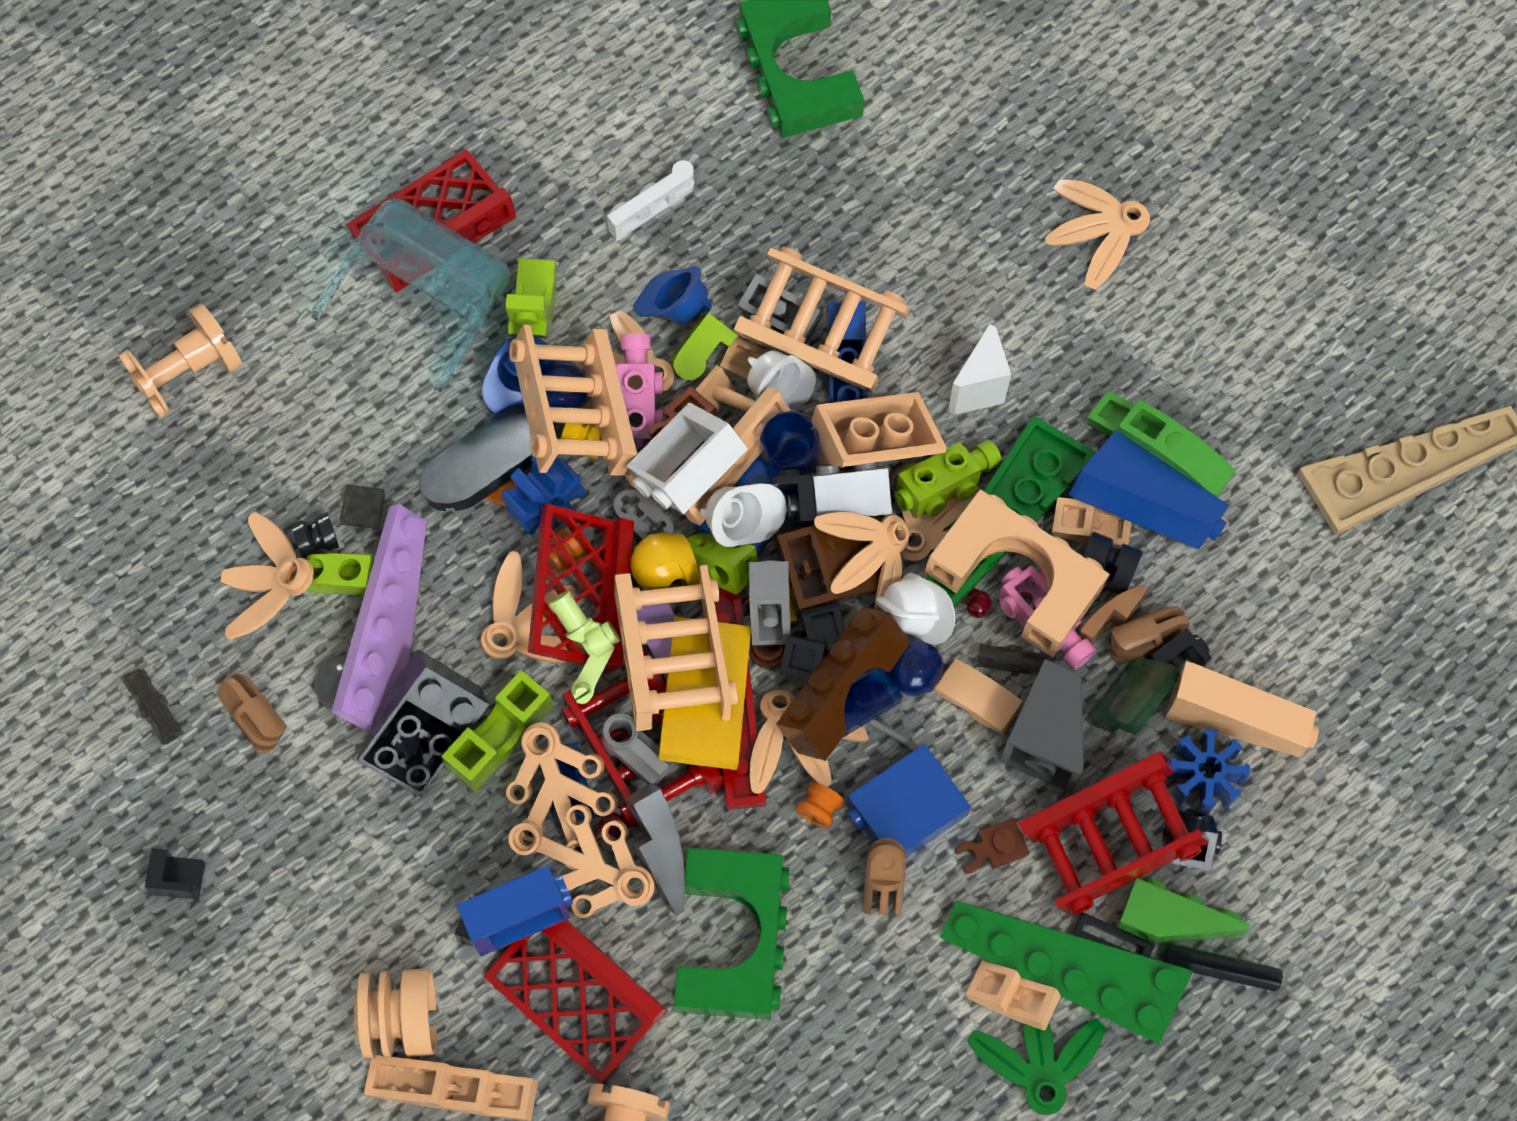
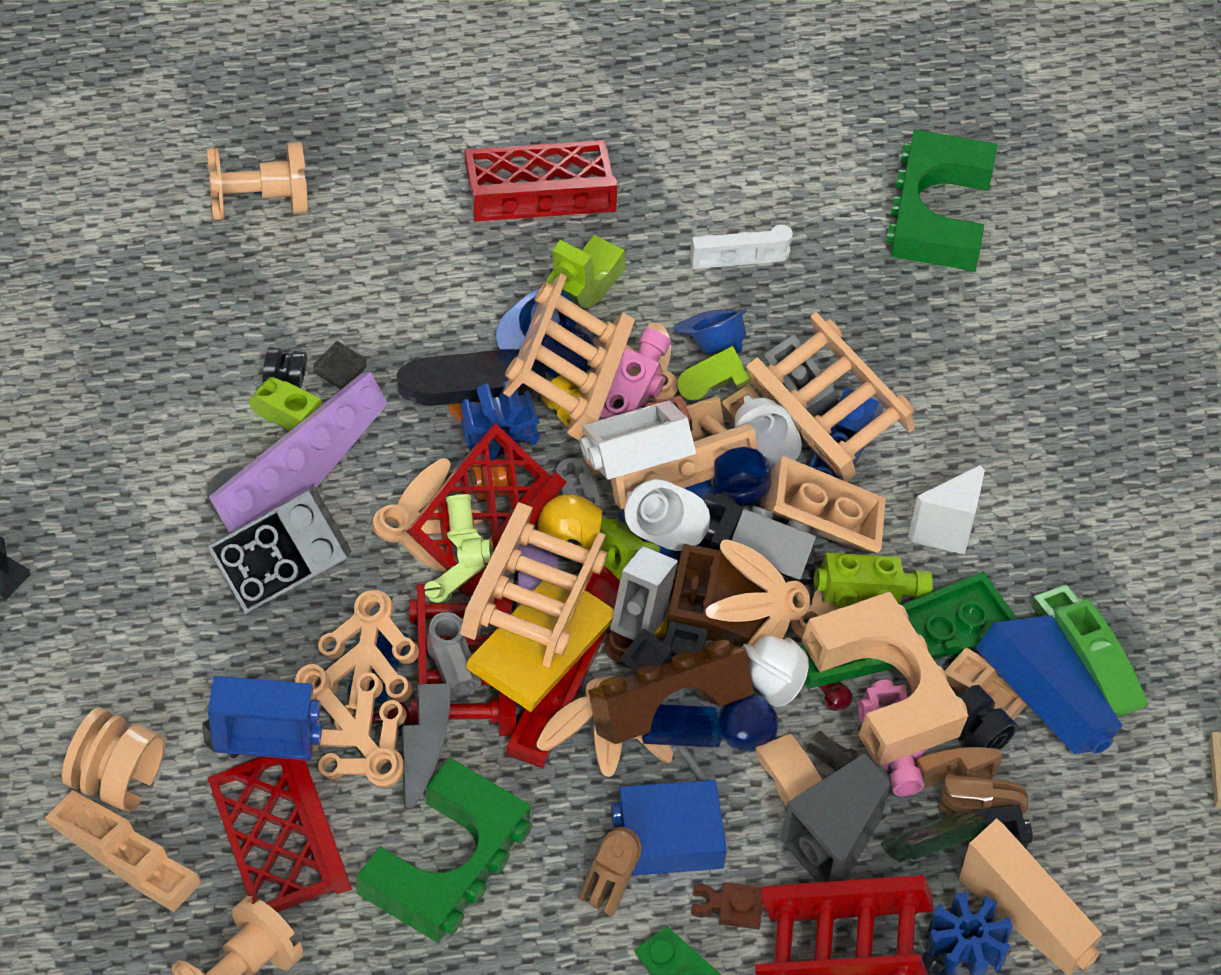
camera: 25 degrees right, 15 degrees down
(153, 706) = (65, 432): clear smoke pin -> none
(252, 712) = (144, 476): medium nougat arm -> none
(288, 577) = (243, 385): light nougat plant -> none
(430, 260) = (514, 196): clear light blue windscreen -> none
(482, 751) = (319, 600): lime arch -> none
(819, 805) = (591, 788): orange wheel -> none
(1110, 220) = (1153, 453): light nougat plant -> none

